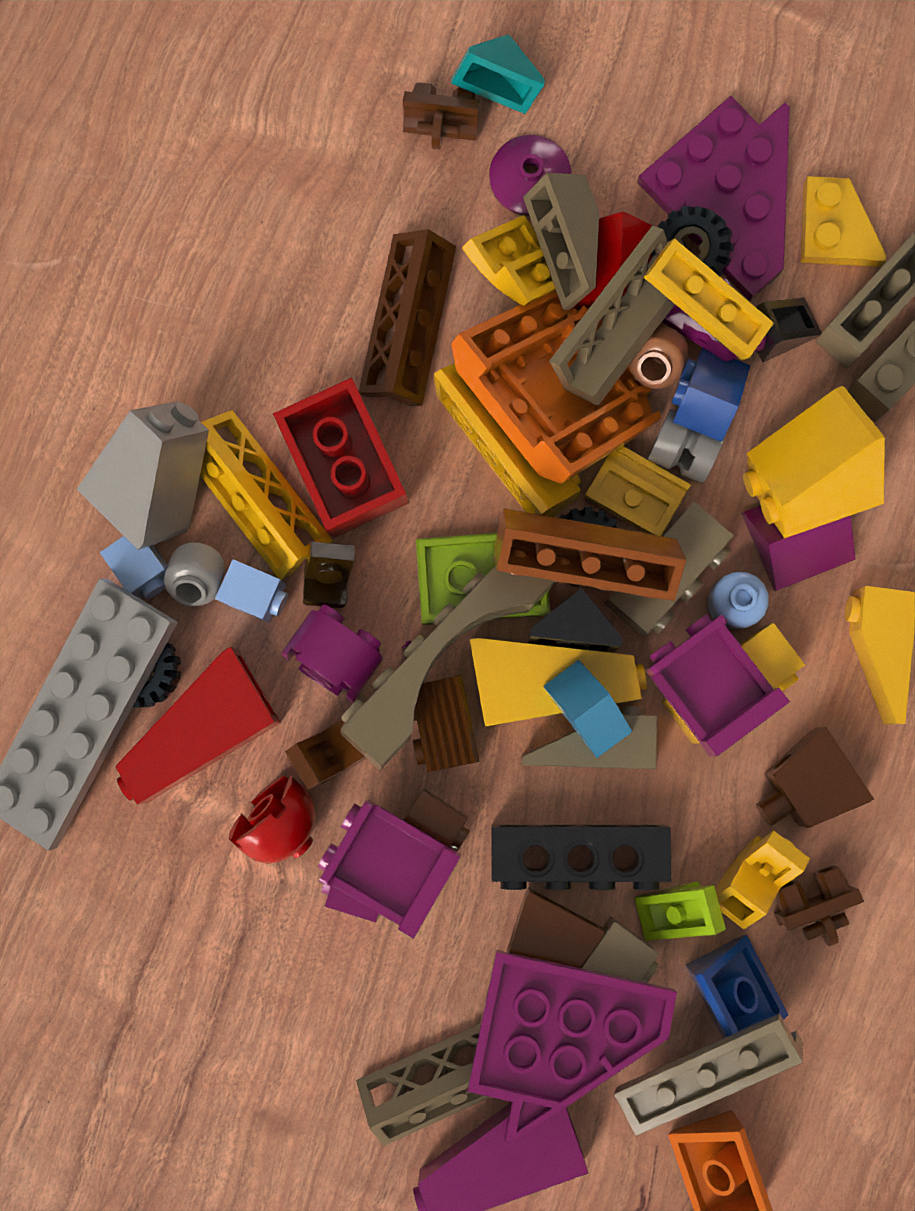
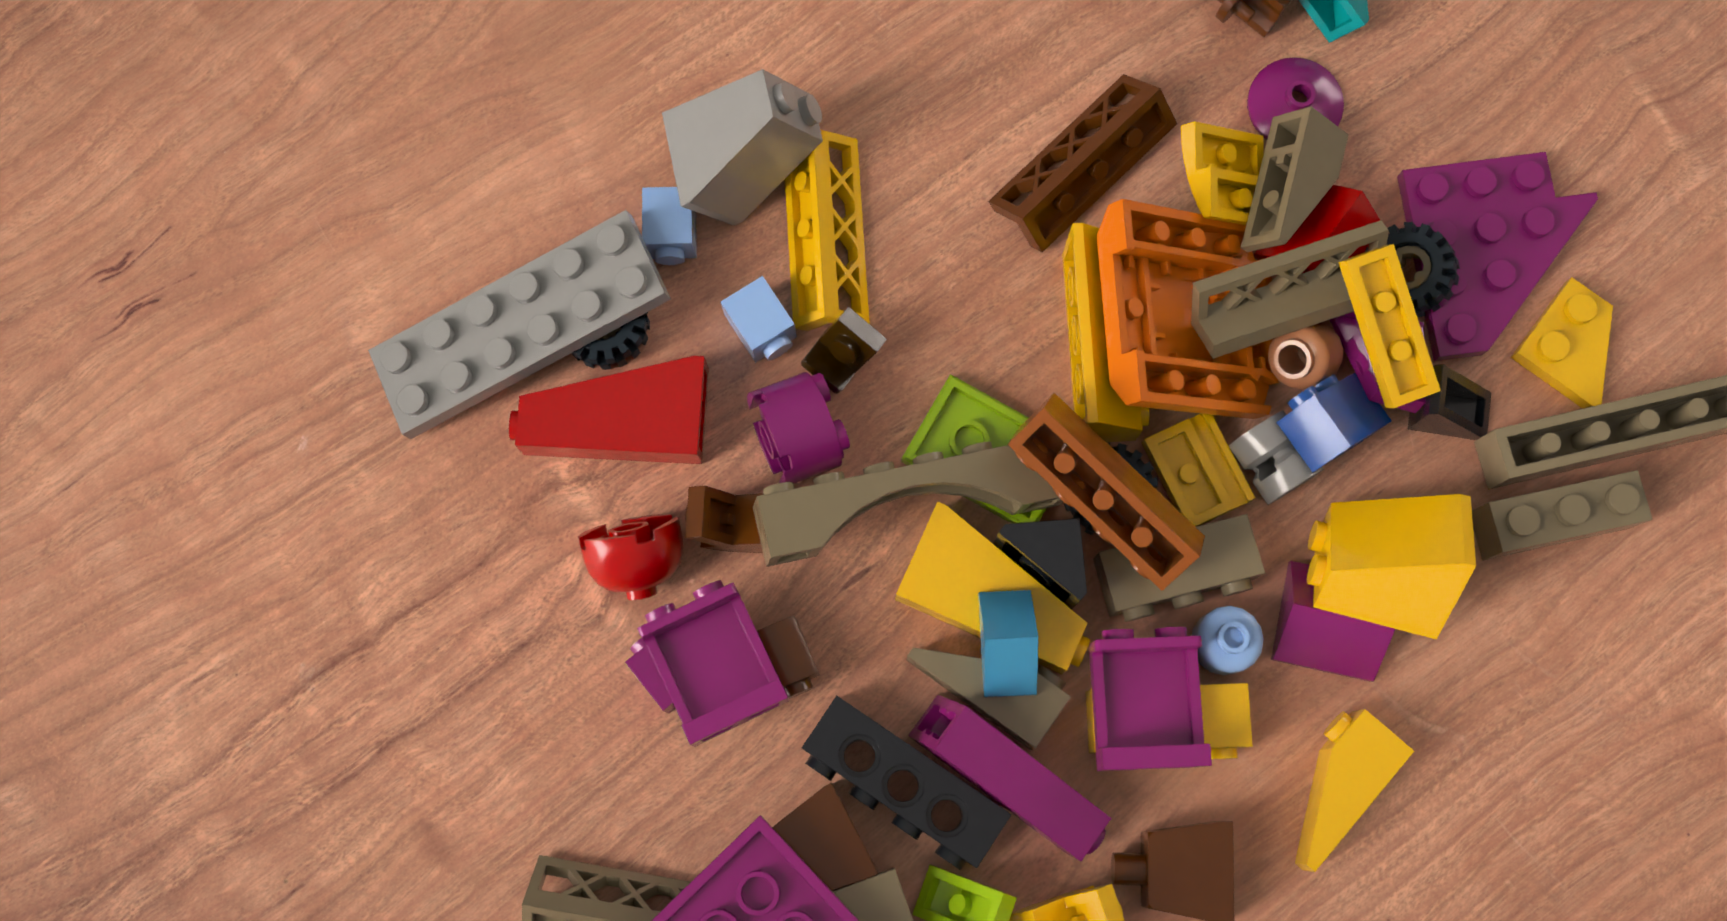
camera: 25 degrees right, 5 degrees down
(194, 574) = (716, 267): light grey head -> none
(341, 458) = (930, 250): red brick -> none
(444, 726) = (856, 569): reddish brown brick -> none
(650, 801) = (1010, 777): none -> magenta slope

